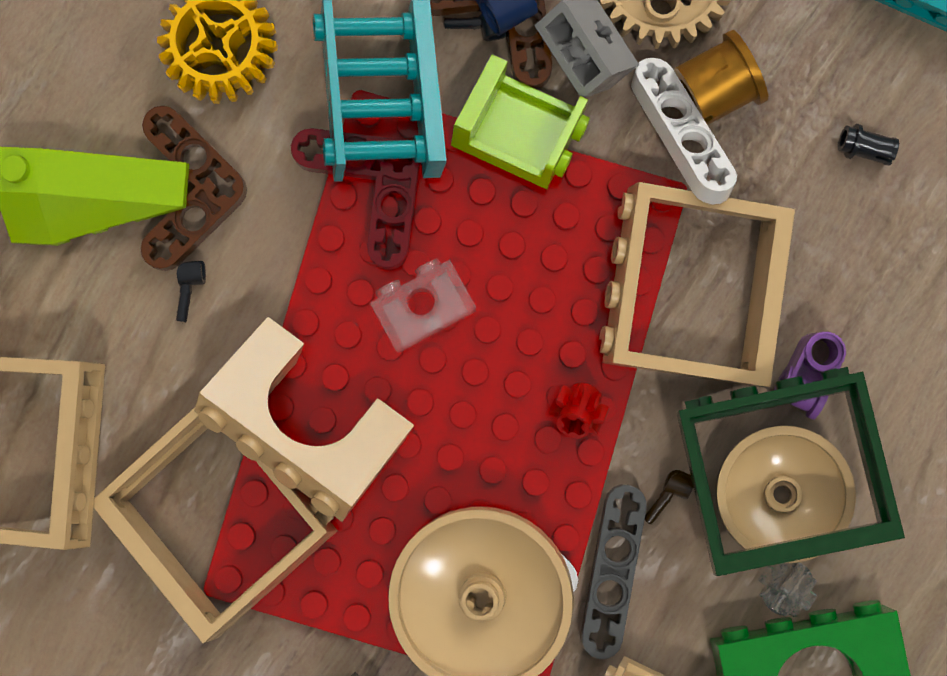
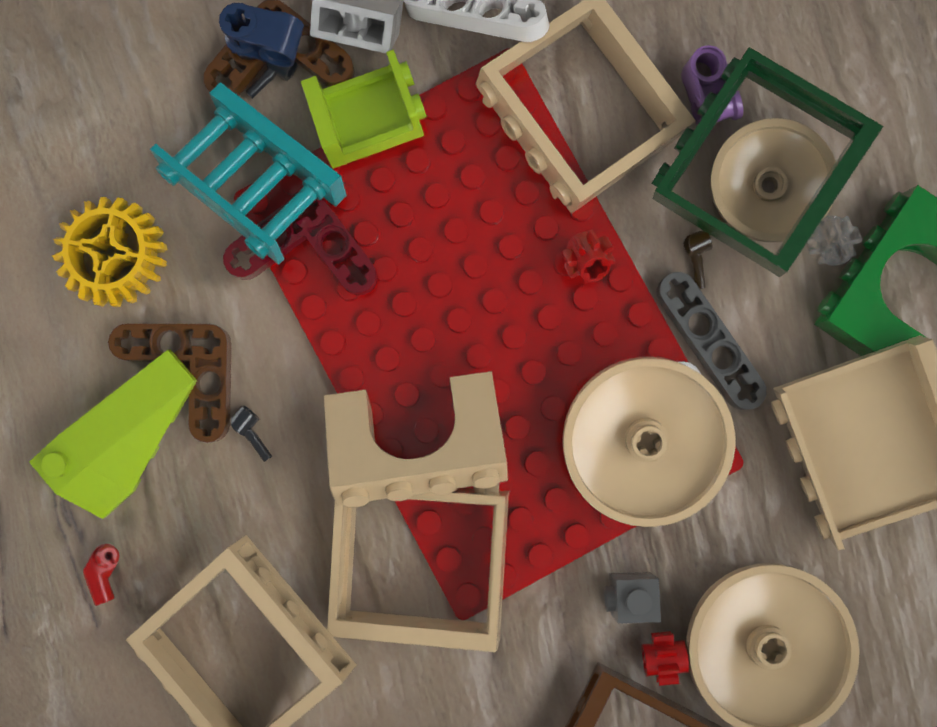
camera: 45 degrees left, 0 degrees up
(408, 328) = (422, 263): clear brick -> none

